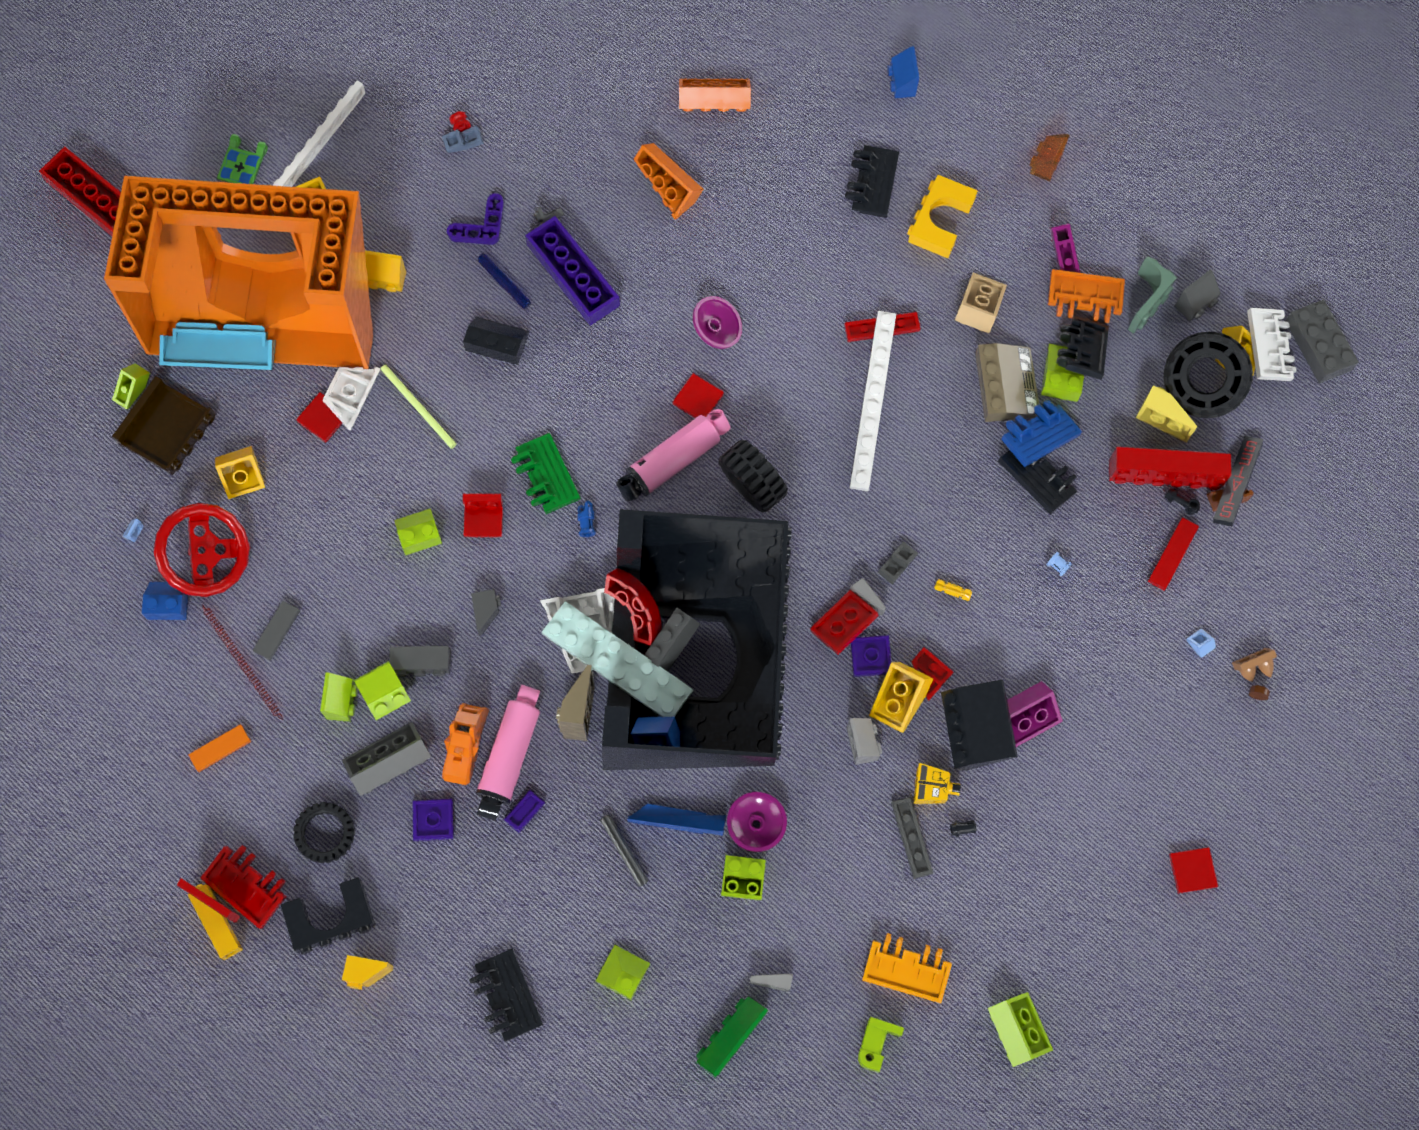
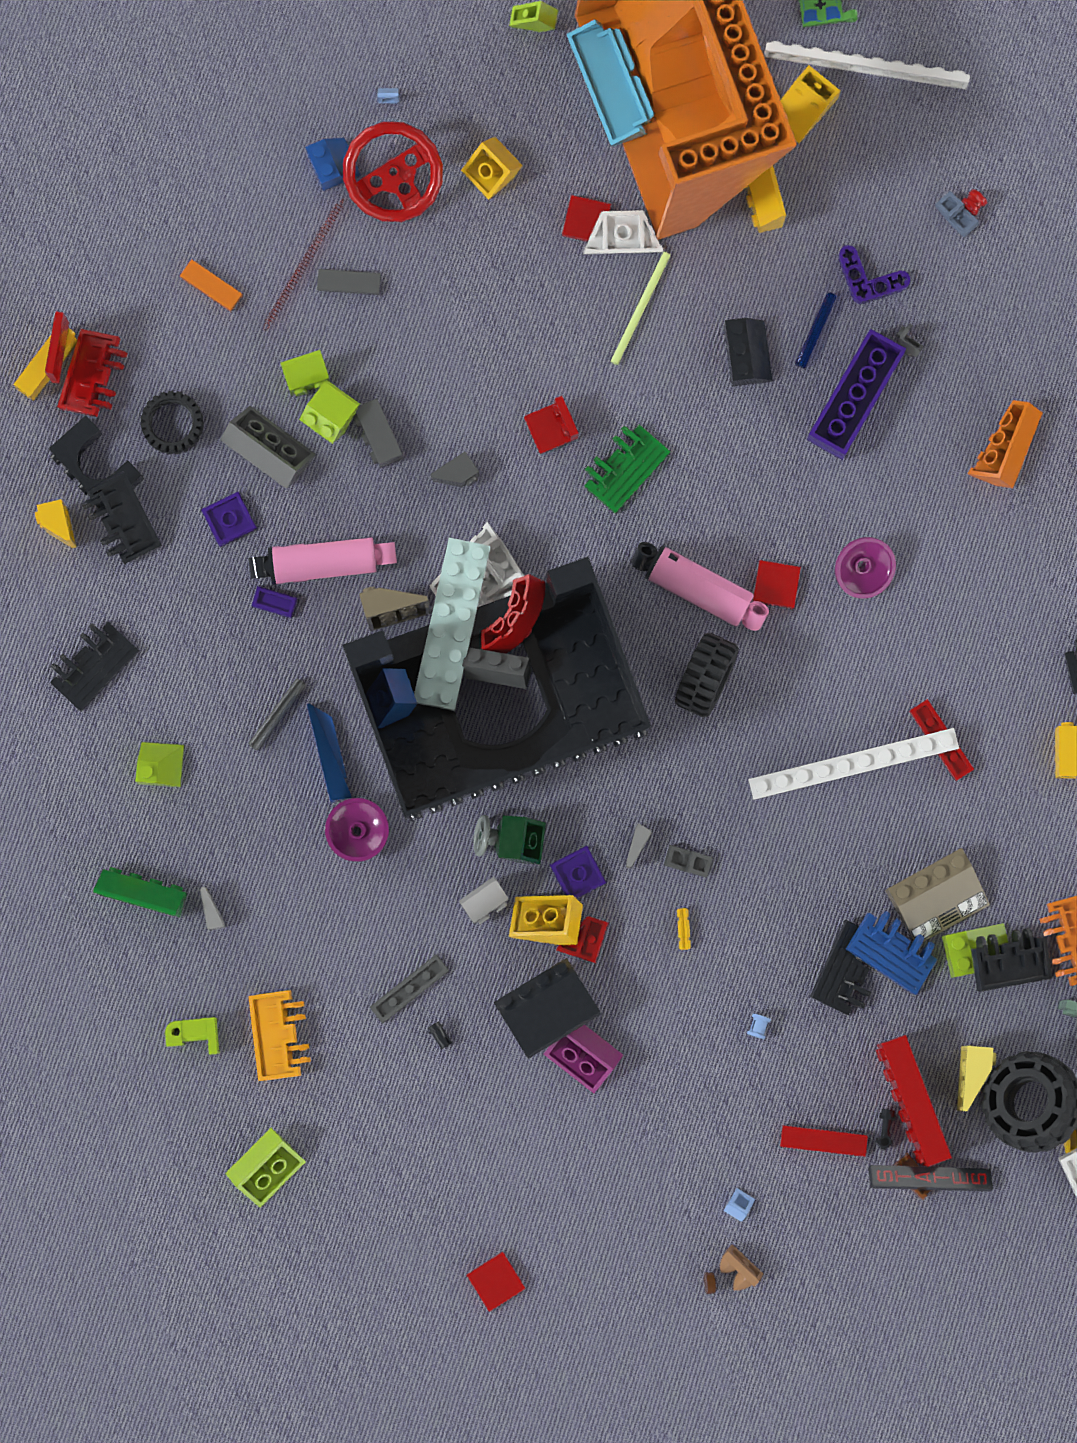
camera: 65 degrees right, 10 degrees up
(163, 426) = (507, 71): dark brown panel -> none
(389, 906) = (125, 518): none -> black hinge
(417, 531) = (508, 369): lime slope -> none
(463, 746) = (303, 514): orange animal -> none
(586, 520) = (594, 528): blue piece -> none
(743, 877) = (296, 840): lime slope -> none
(821, 692) = (514, 838): none -> dark green piece
(844, 622) = (599, 832): red plate -> none
(933, 785) = (469, 989): yellow torso -> none
(981, 302) = (1017, 832): tan slope -> none

